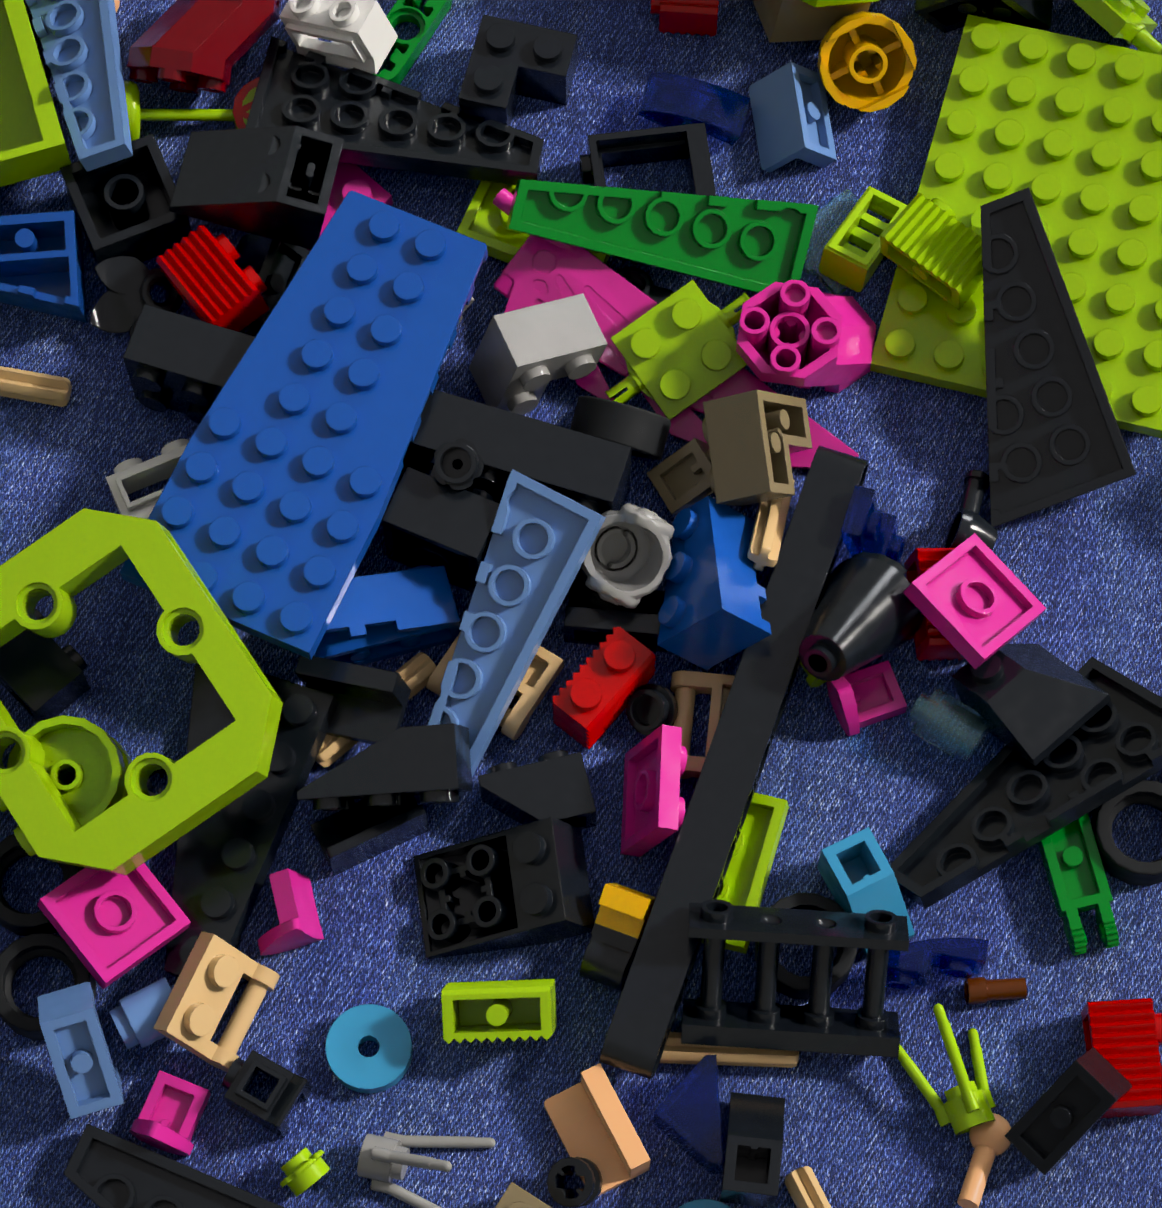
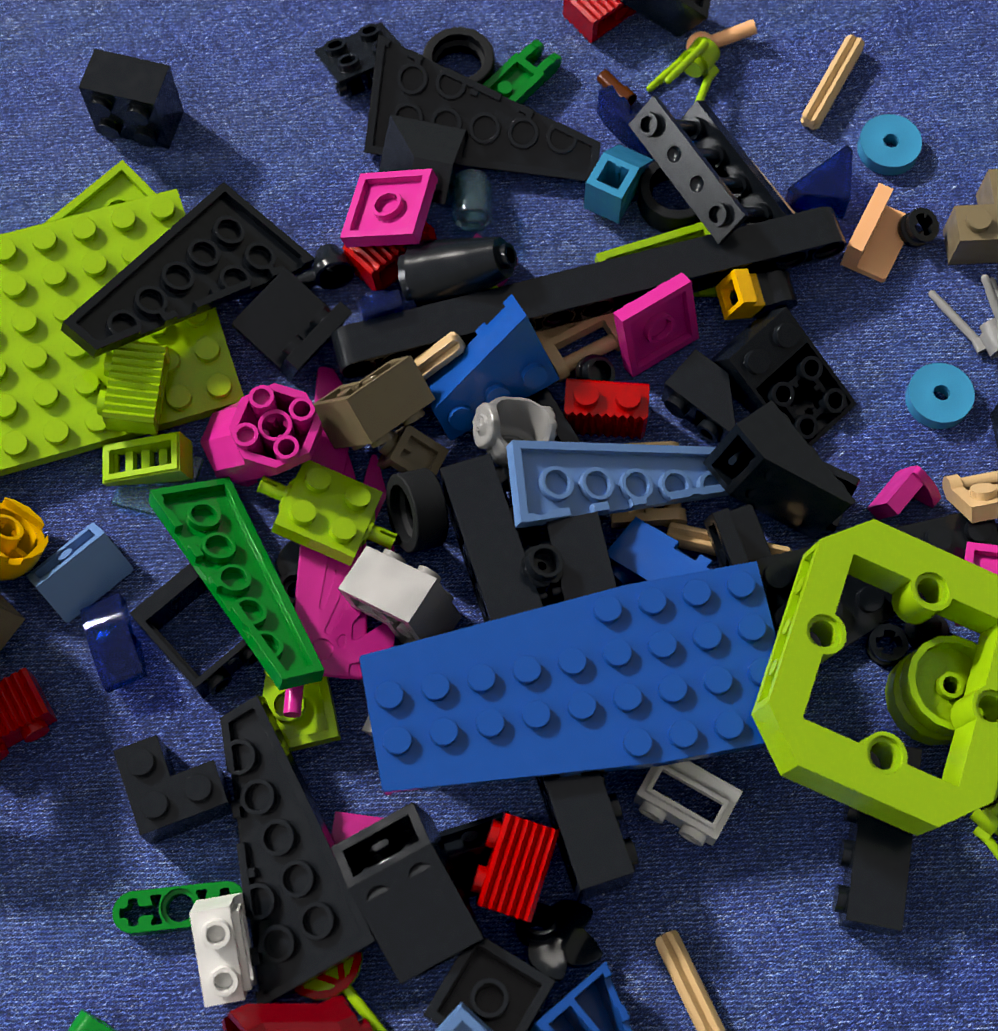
camera: 125 degrees left, 0 degrees up
(499, 1010) = (862, 323): lime brick -> none
(753, 1150) = (821, 138): black slope -> none
(921, 449) = (289, 323): none -> black bracket

